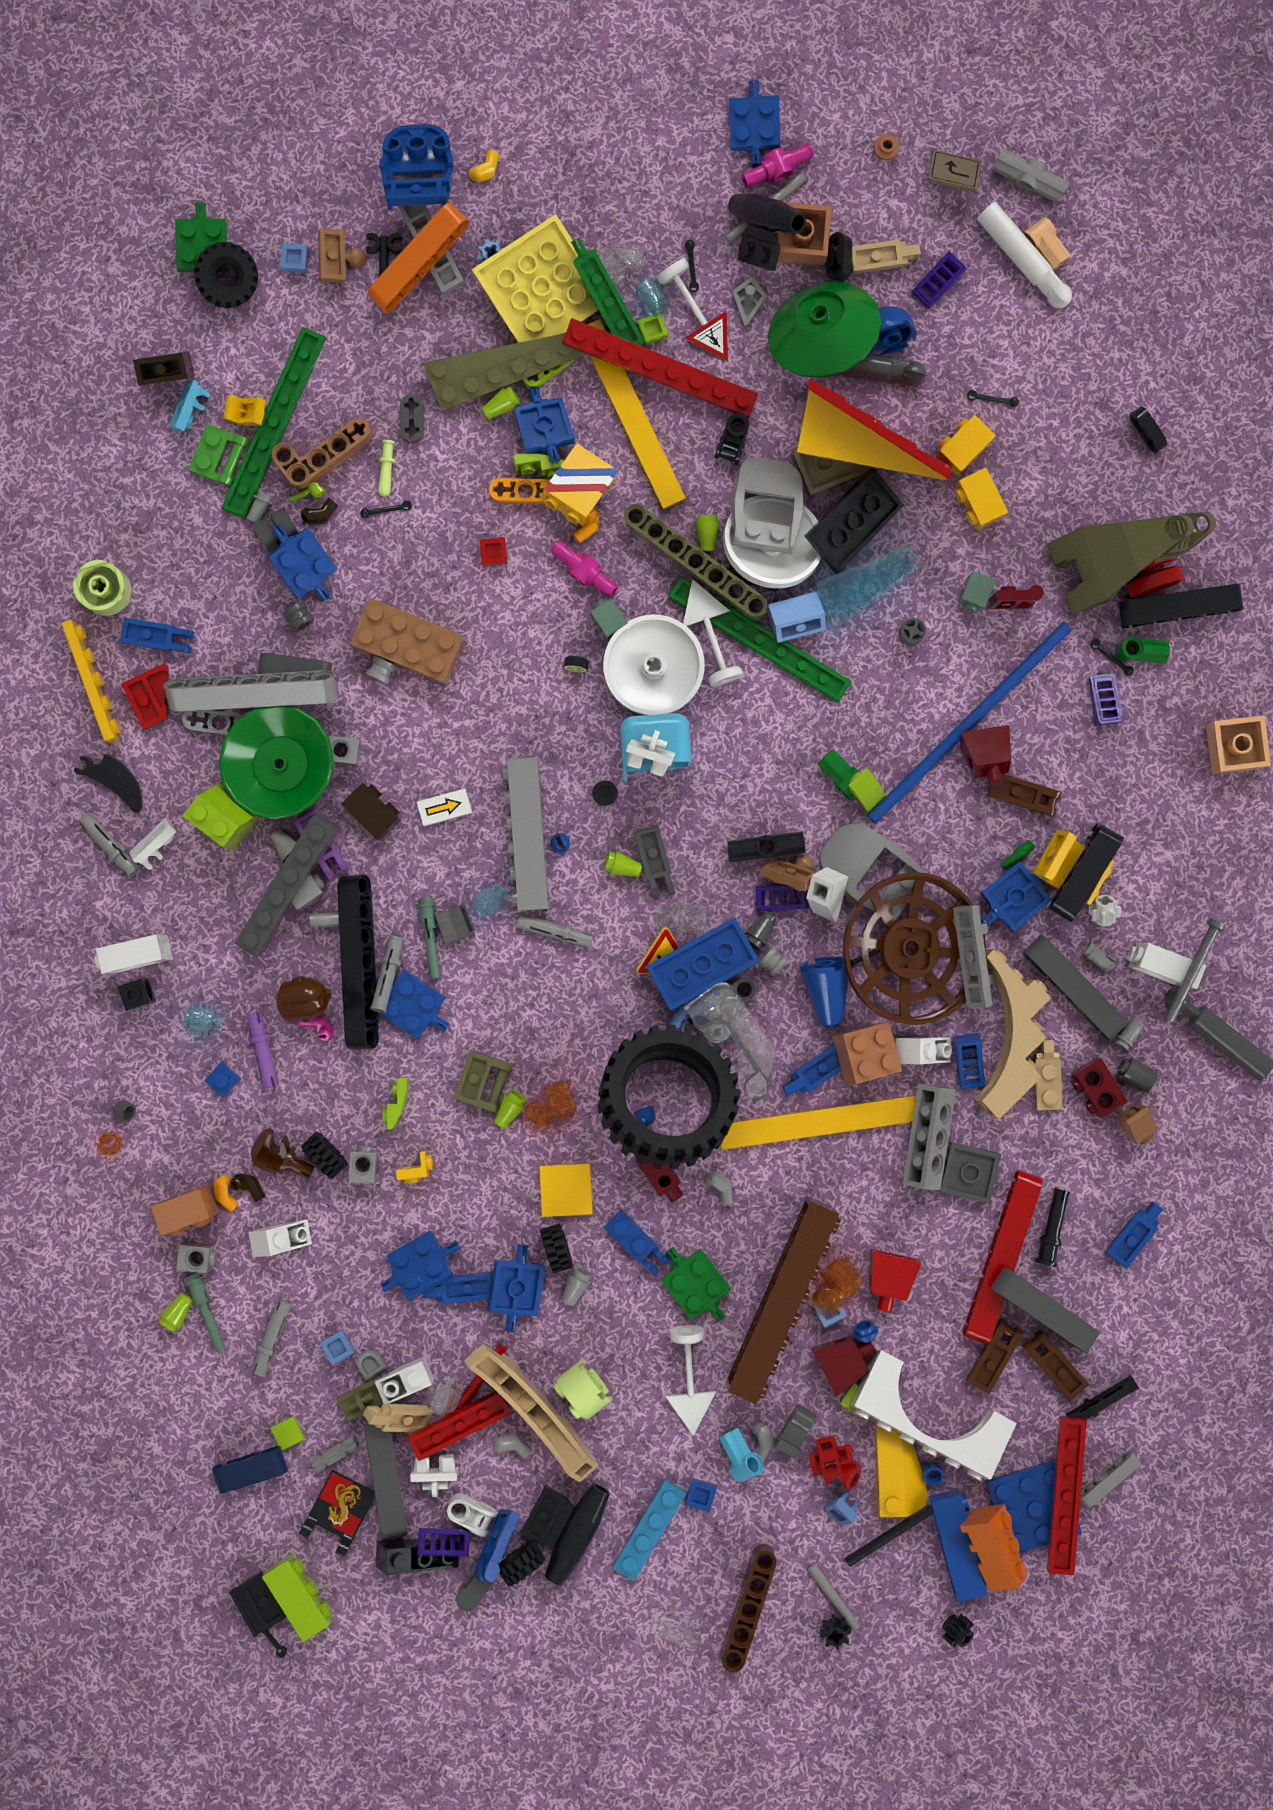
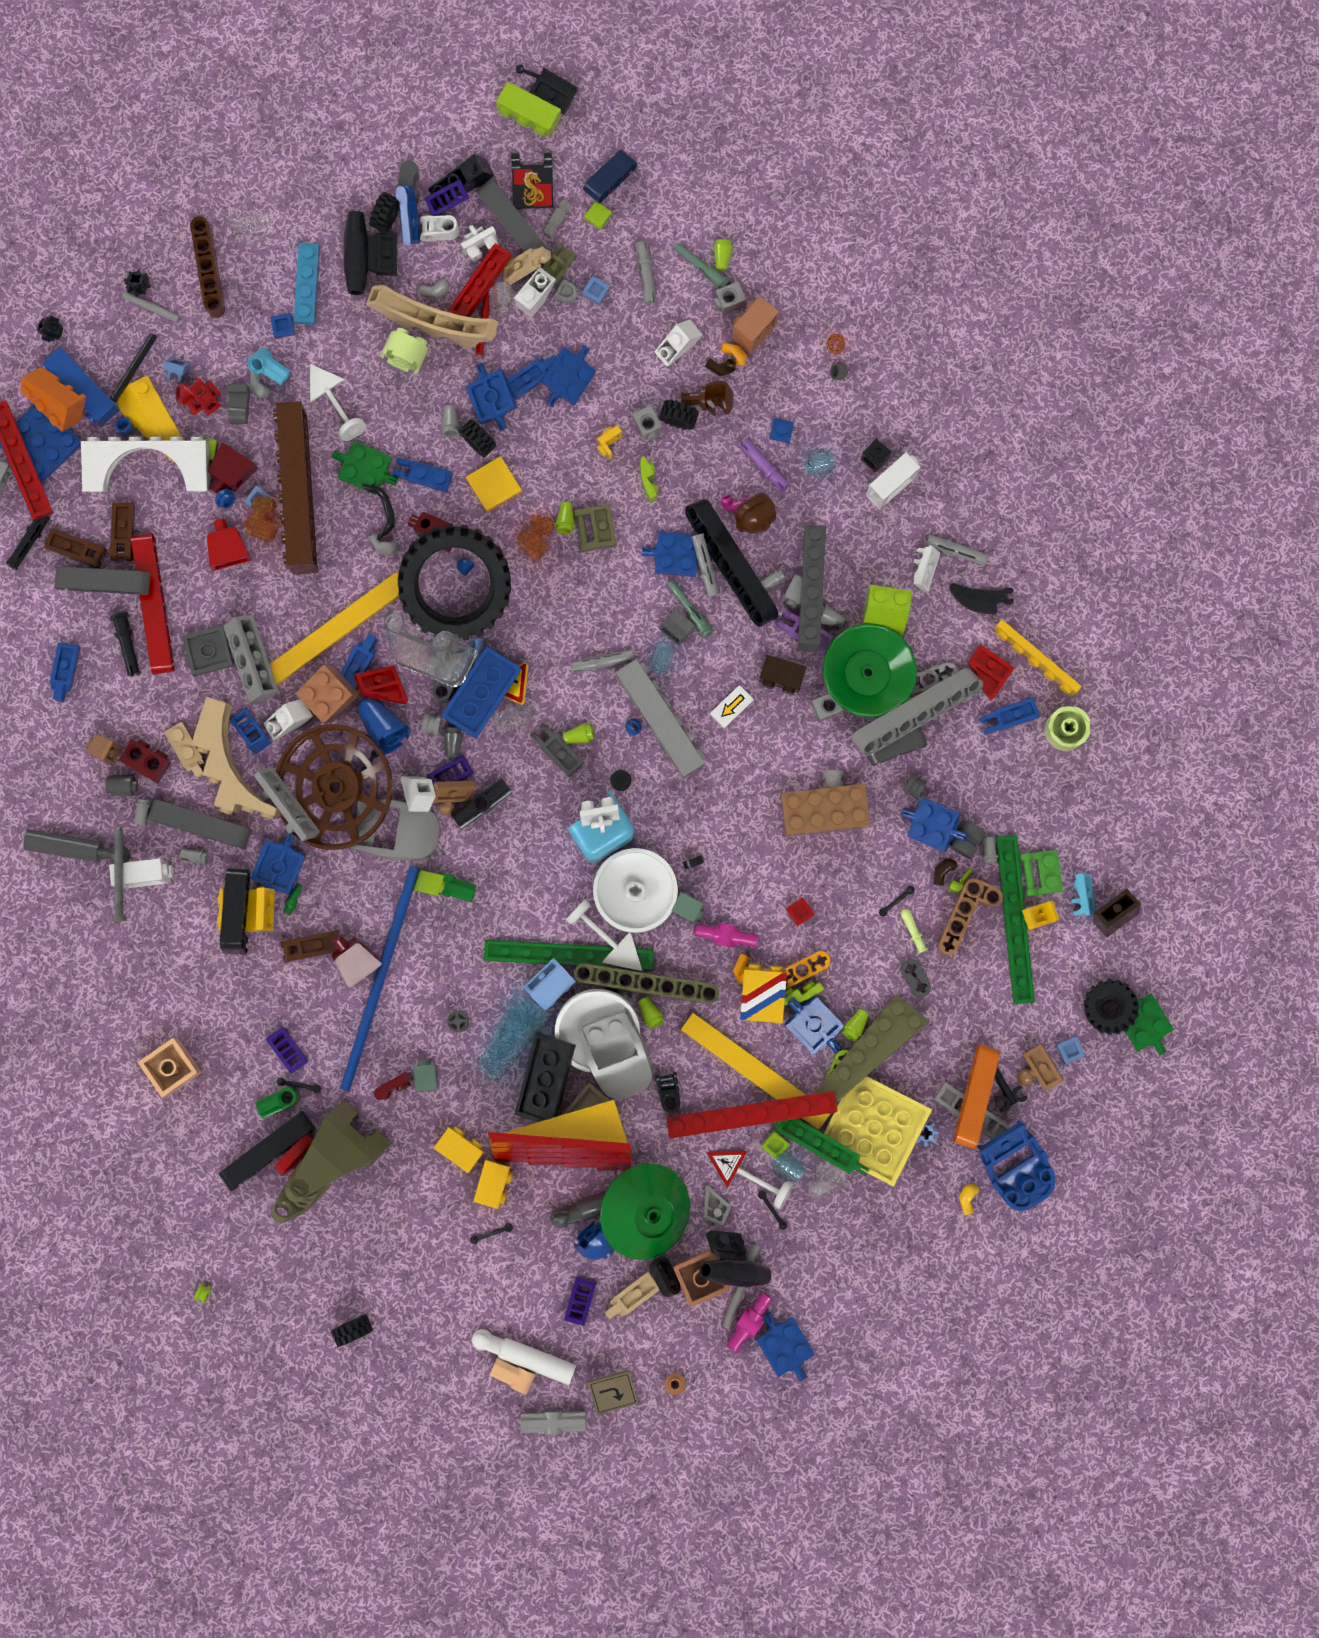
camera: 150 degrees right, 5 degrees down
(694, 1226) = (387, 507): none -> black animal
(804, 1032) = (381, 685): none -> red wing
(1105, 910) = (206, 892): white gear -> none
(1148, 429) = (360, 1273): black beam -> none
(1188, 373) = (352, 1330): none -> black tyre

